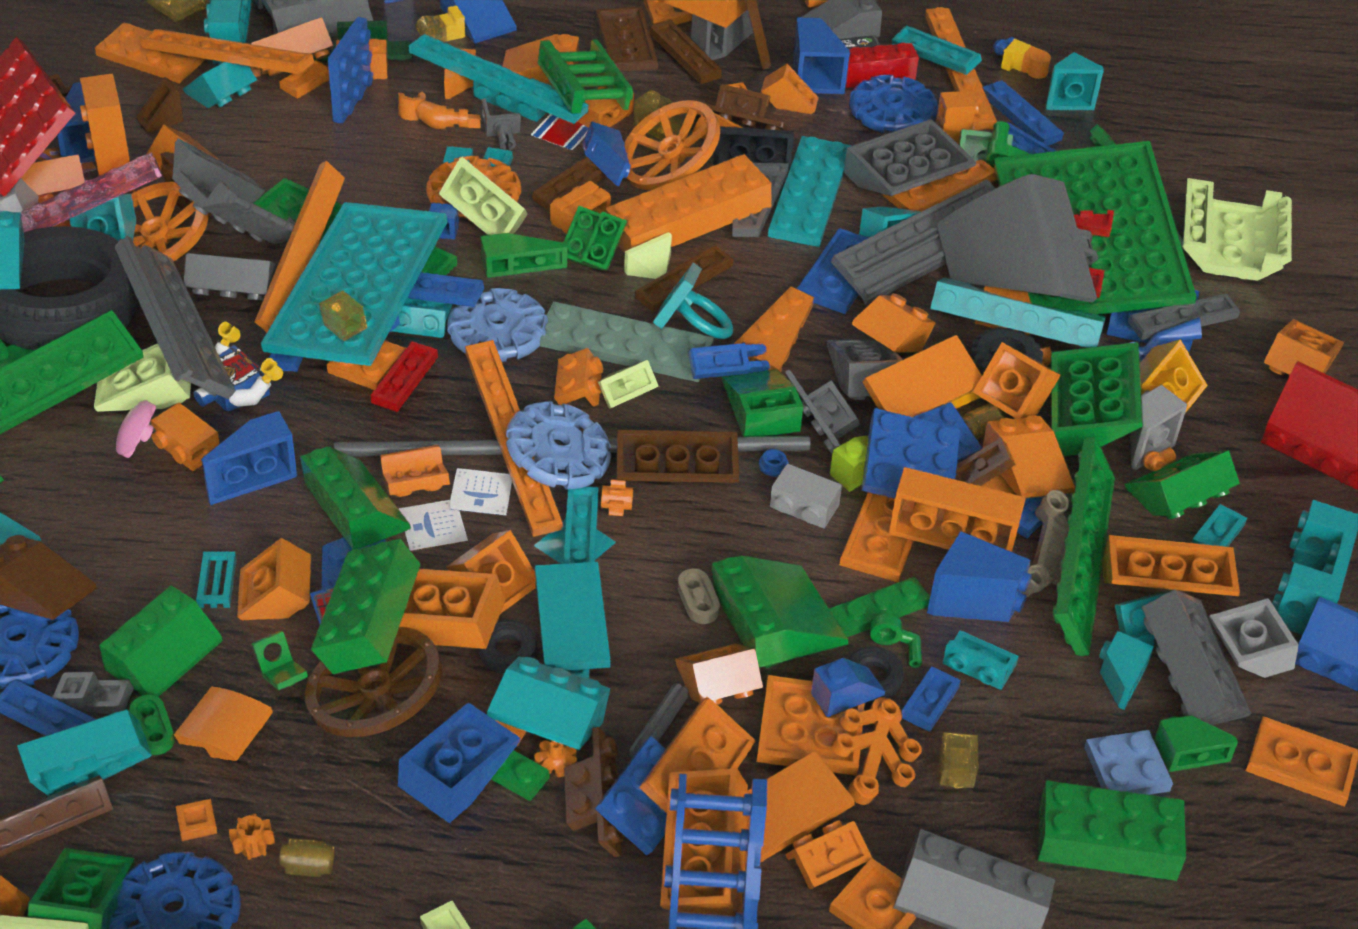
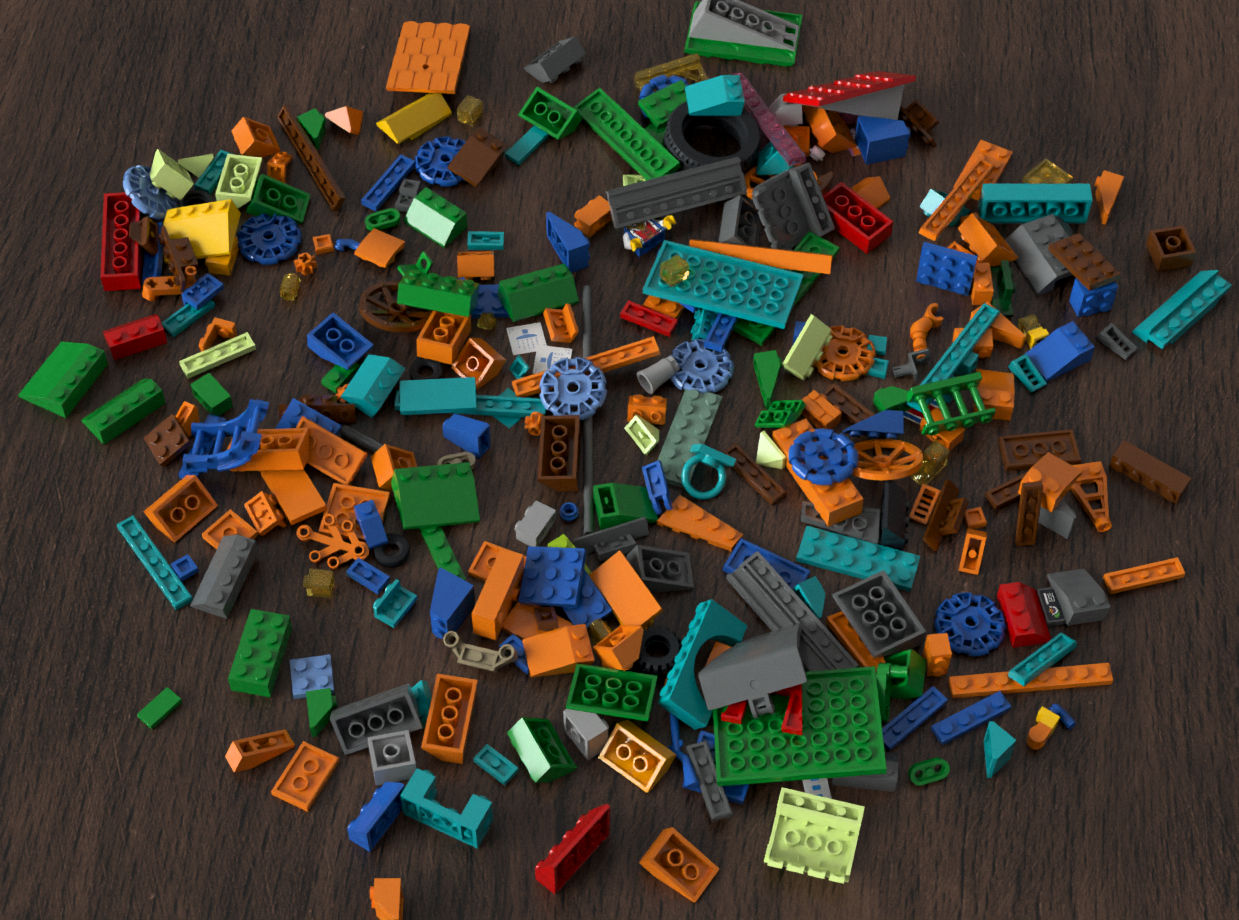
camera: 95 degrees right, 10 degrees up
(84, 752) = (353, 186): teal wedge -> none
(105, 122) = (848, 142): orange brick -> none
(135, 428) = (589, 190): bright pink dish -> none
(162, 107) = (912, 180): reddish brown slope -> none
(202, 776) = (350, 243): none -> blue arm
(250, 146) = (857, 218): none -> red brick
(421, 69) = (1004, 330): none -> orange slope
(500, 39) = (1027, 364): none -> teal slope
(503, 520) = (519, 367): none -> teal slope
(522, 362) = (657, 374): none -> light grey plant
(561, 145) = (891, 399): none -> green slope
(647, 574) = (468, 434): none -> blue slope
(706, 186) = (823, 447): none -> blue plate
(820, 56) = (1012, 563): blue slope -> none
(888, 630) = (423, 558): green plate -> none
(895, 323) = (690, 585): orange slope -> none
(1084, 547) = (494, 675): green plate -> none
(1124, 666) = (379, 680): teal slope -> none
(1156, 460) = (563, 734): orange arm -> none
(1290, 821) = (255, 750): none -> orange slope

